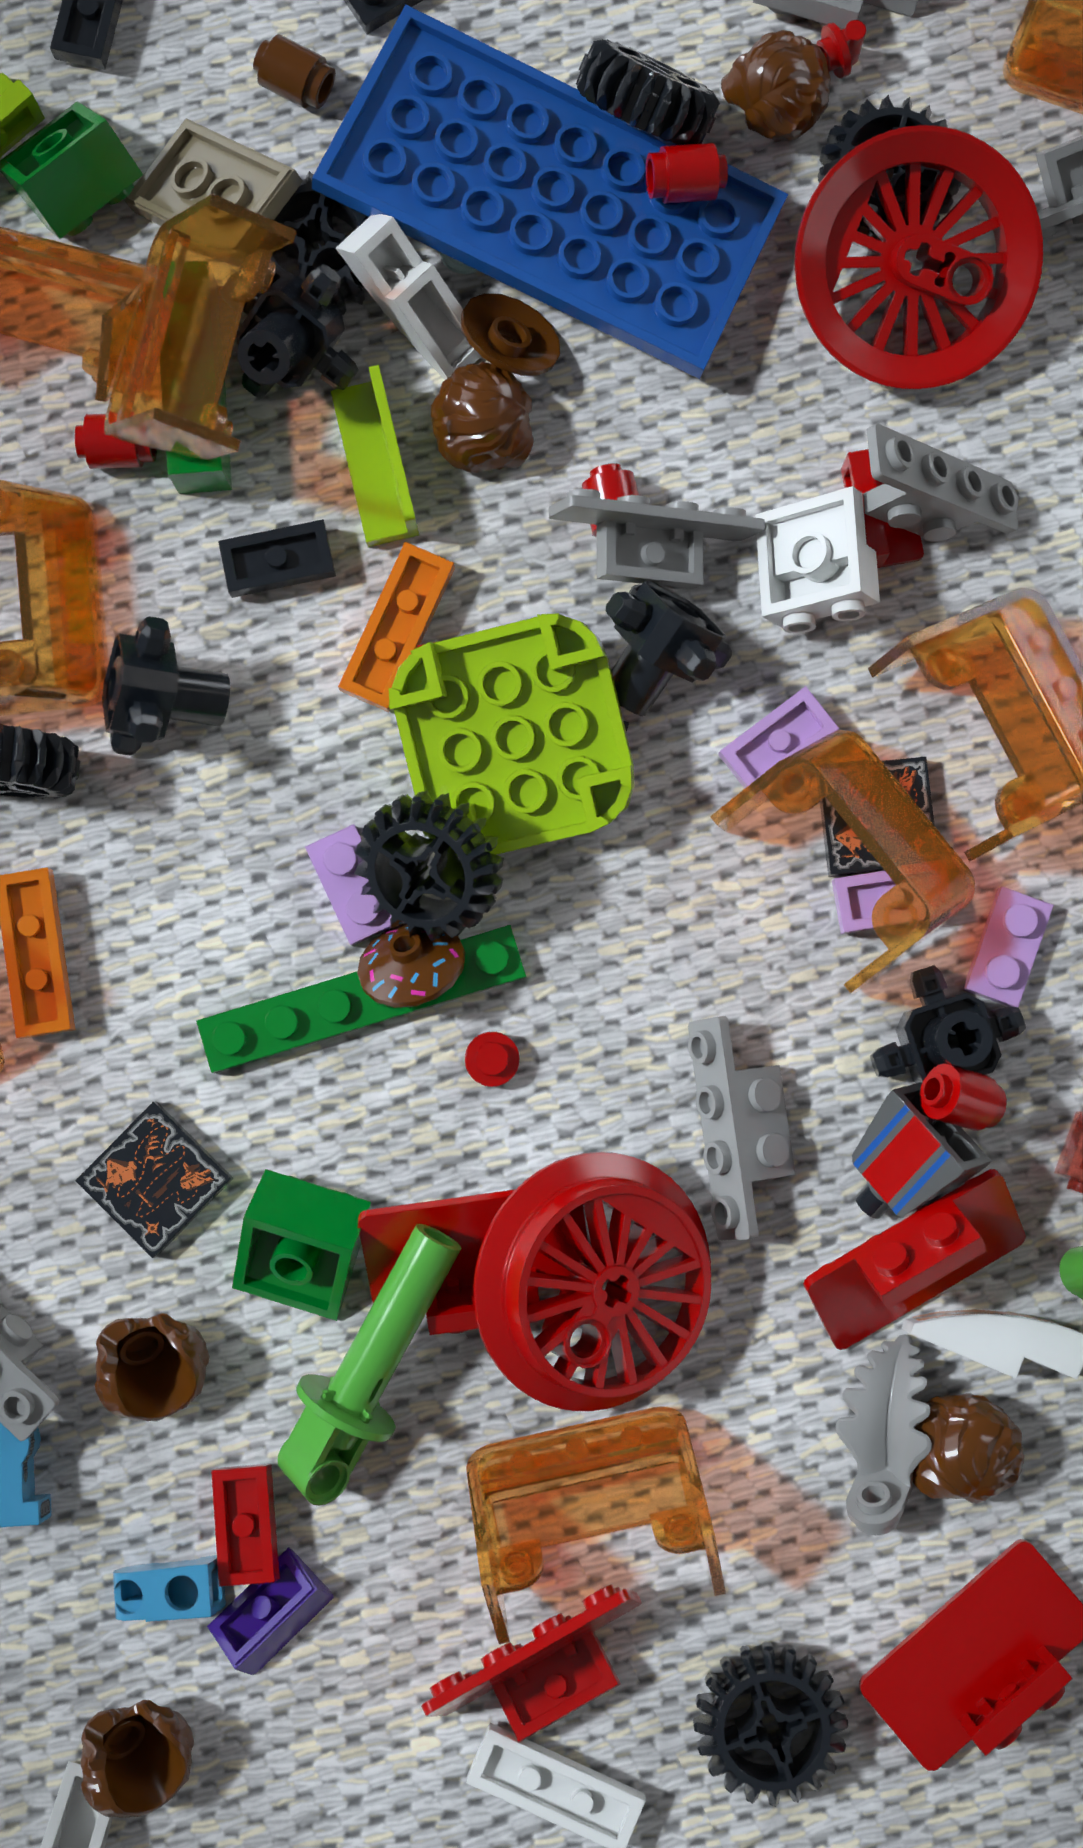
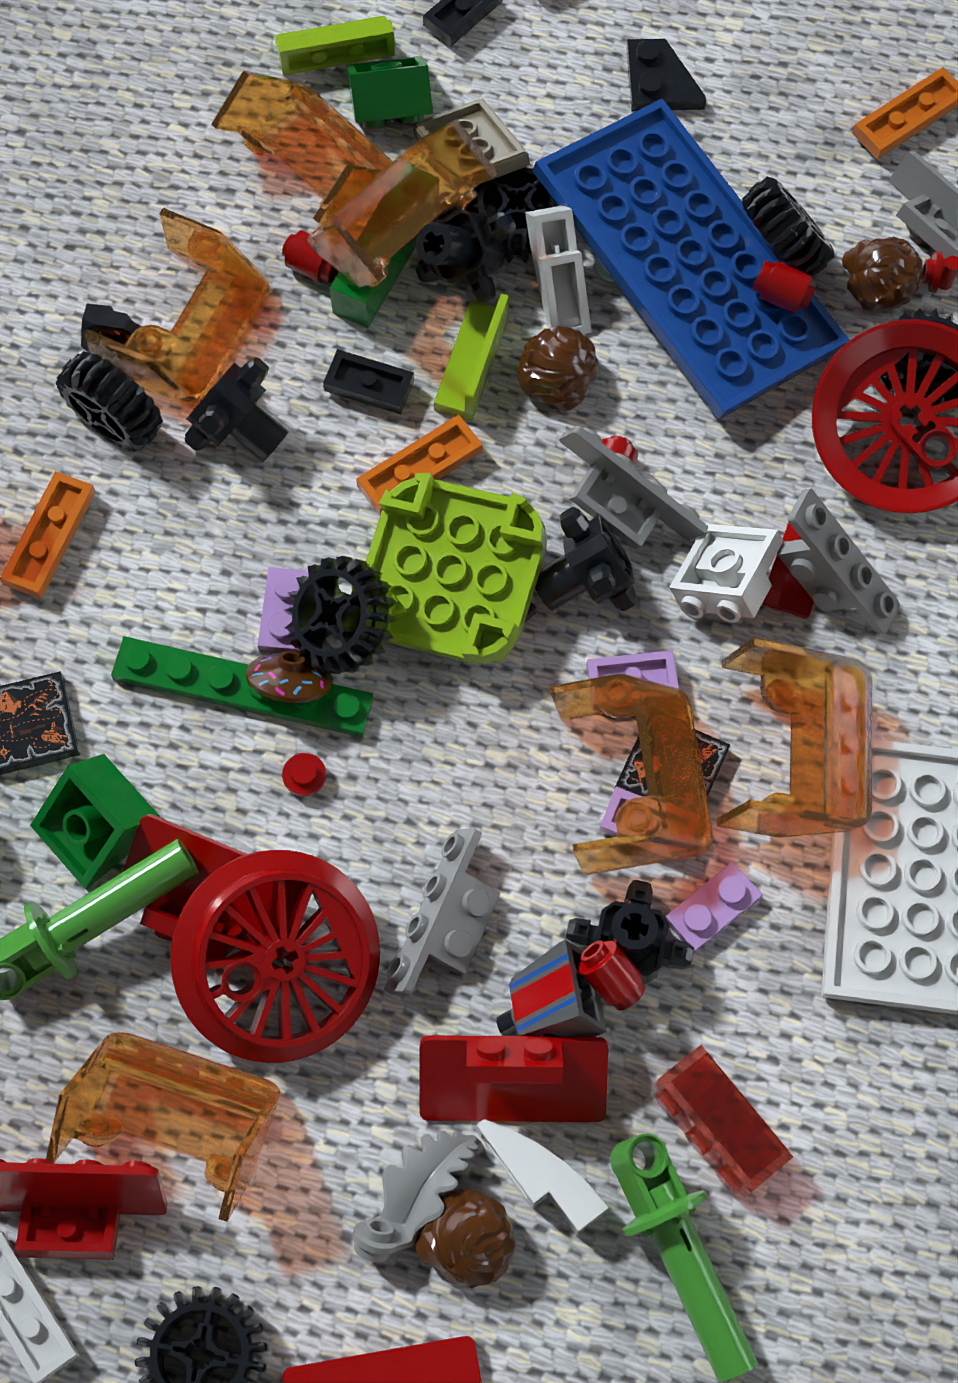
camera: 25 degrees right, 15 degrees down
(294, 72) = (568, 106): reddish brown brick -> none
(510, 334) = (609, 327): reddish brown dish -> none

